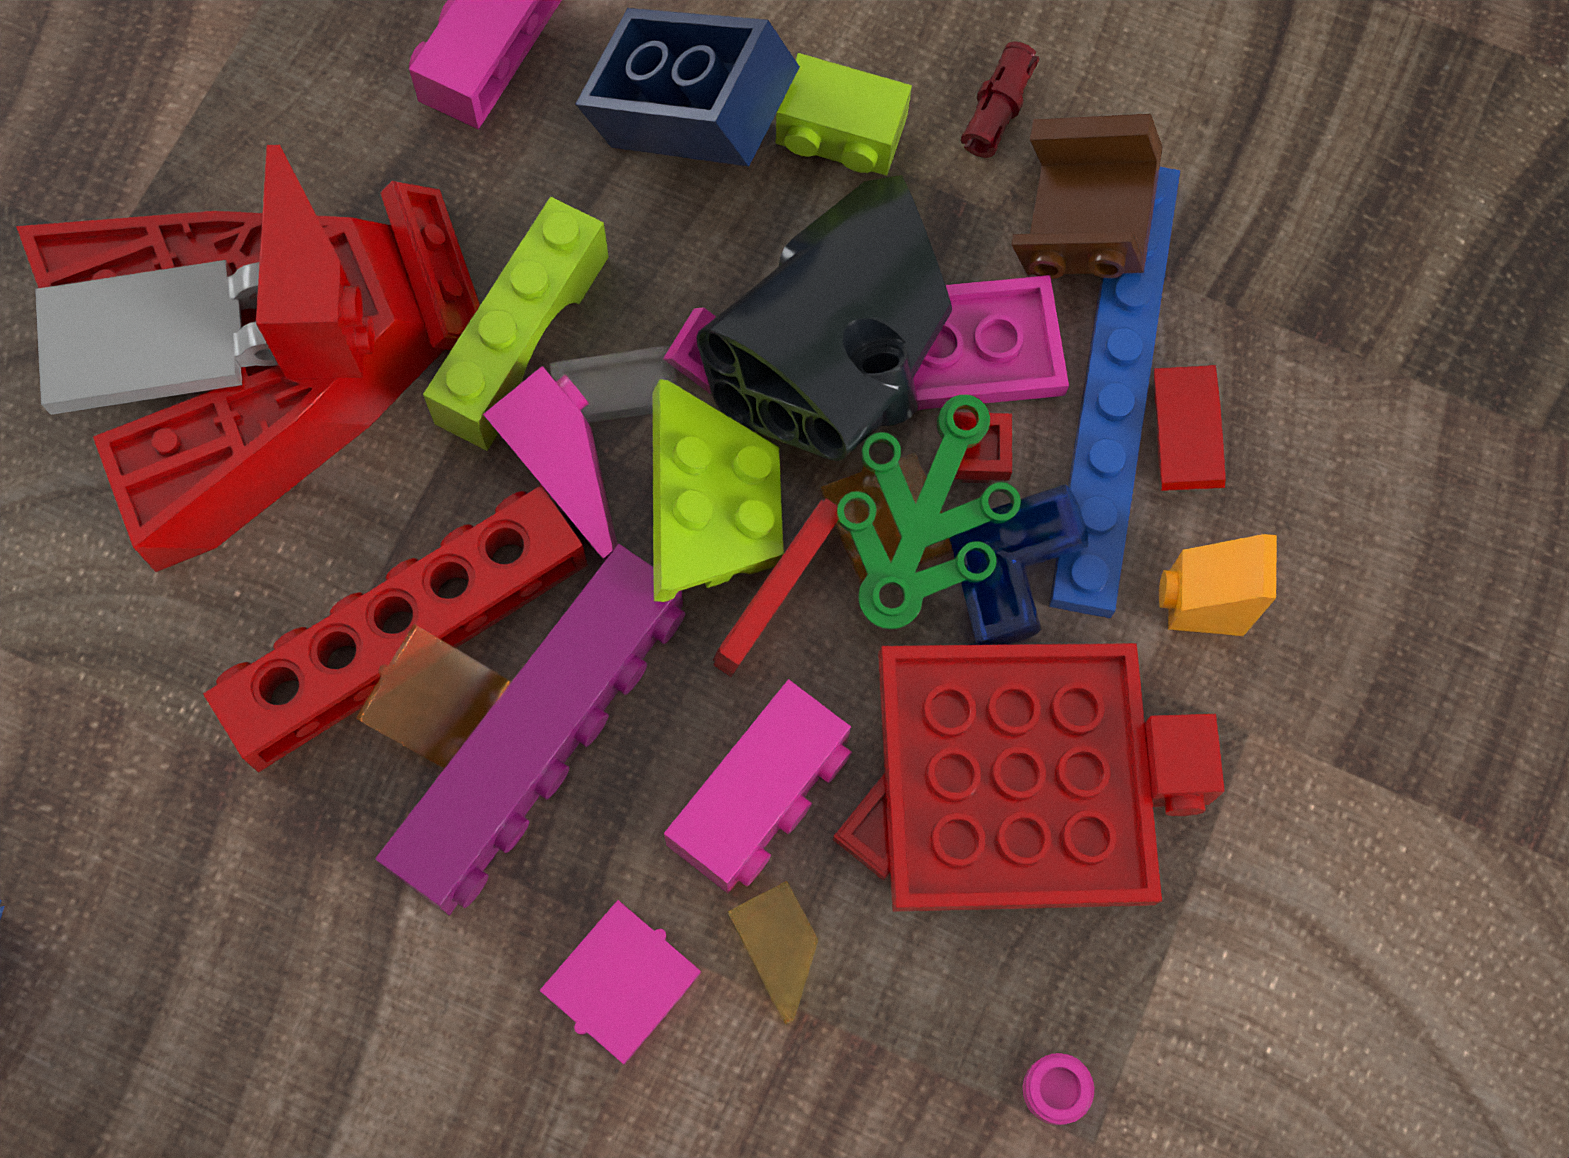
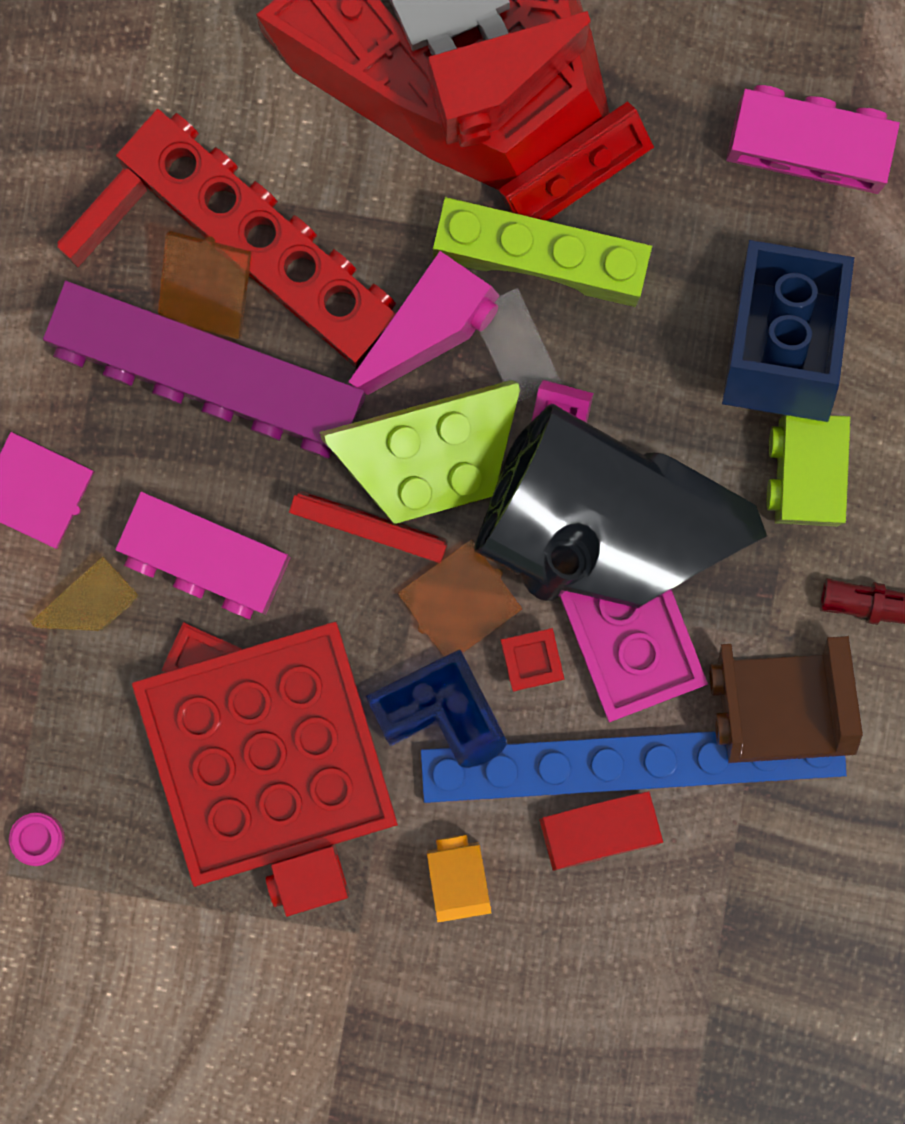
camera: 75 degrees right, 15 degrees up
(310, 804) = (101, 217): none -> red tile
(922, 522) = (445, 628): green plant -> none

